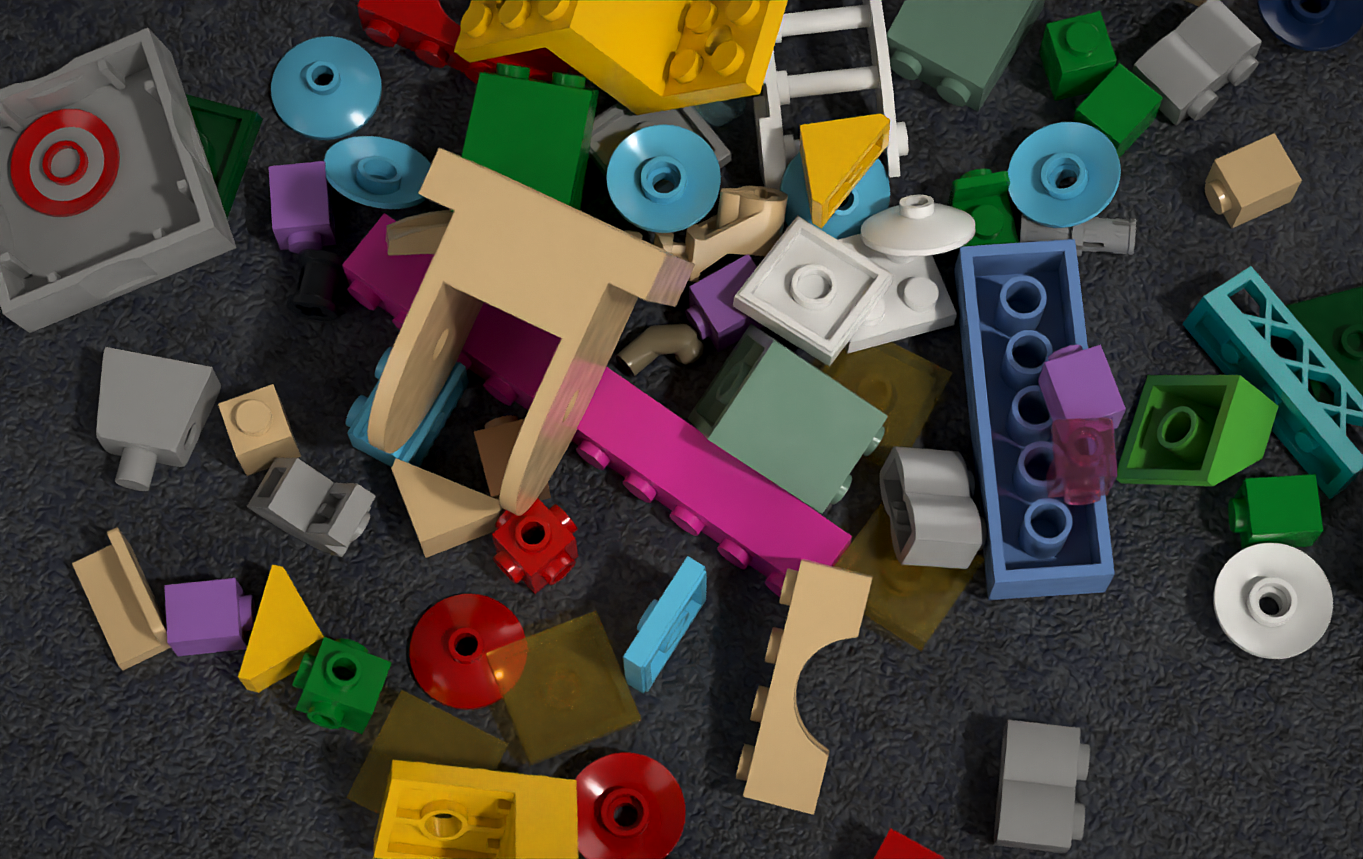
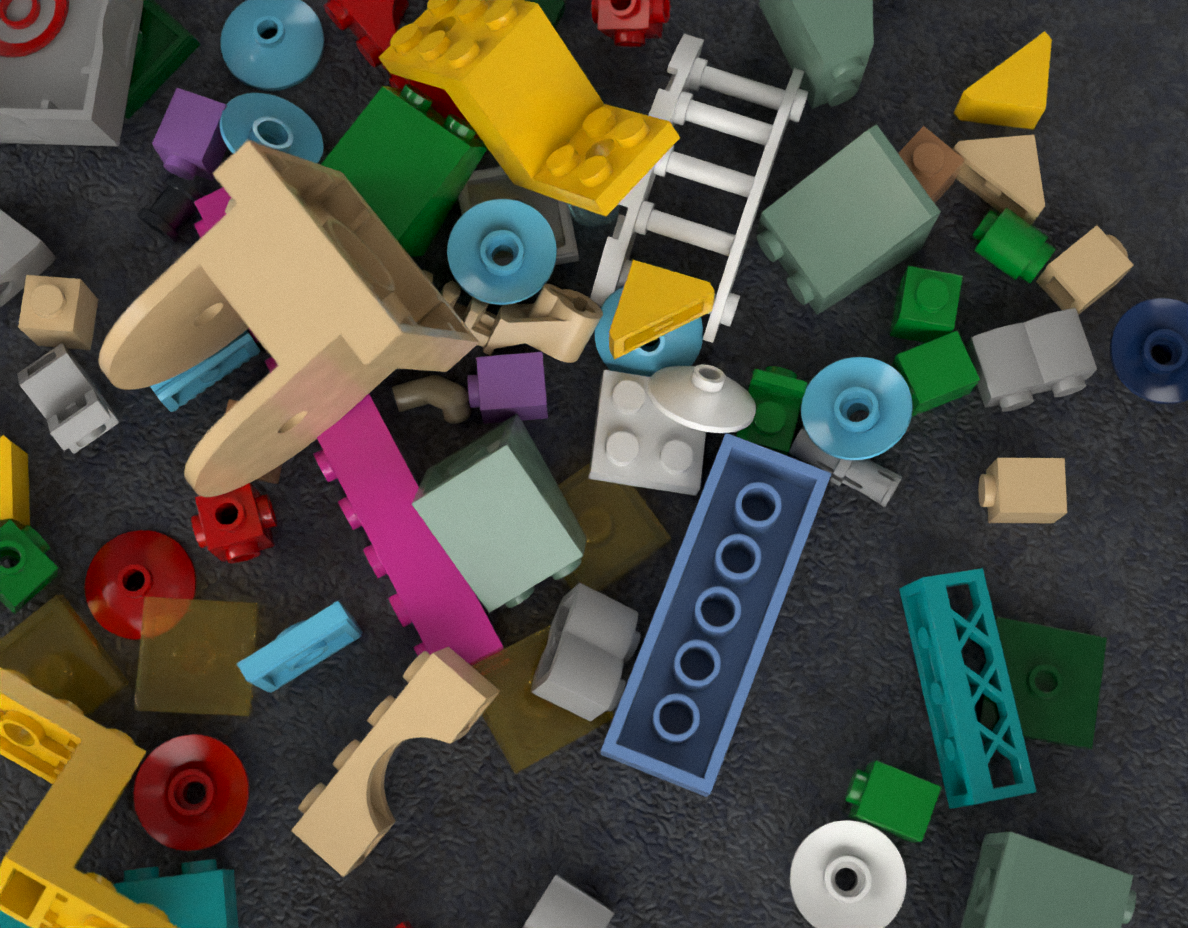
camera: 25 degrees right, 5 degrees up
(443, 510) = (162, 447): tan slope -> none
(813, 290) = (579, 411): white tile -> none
(1080, 385) = (760, 617): medium lavender brick -> none
(1082, 460) = (726, 680): clear pink bracket -> none
(1195, 430) = (856, 695): bright green slope -> none

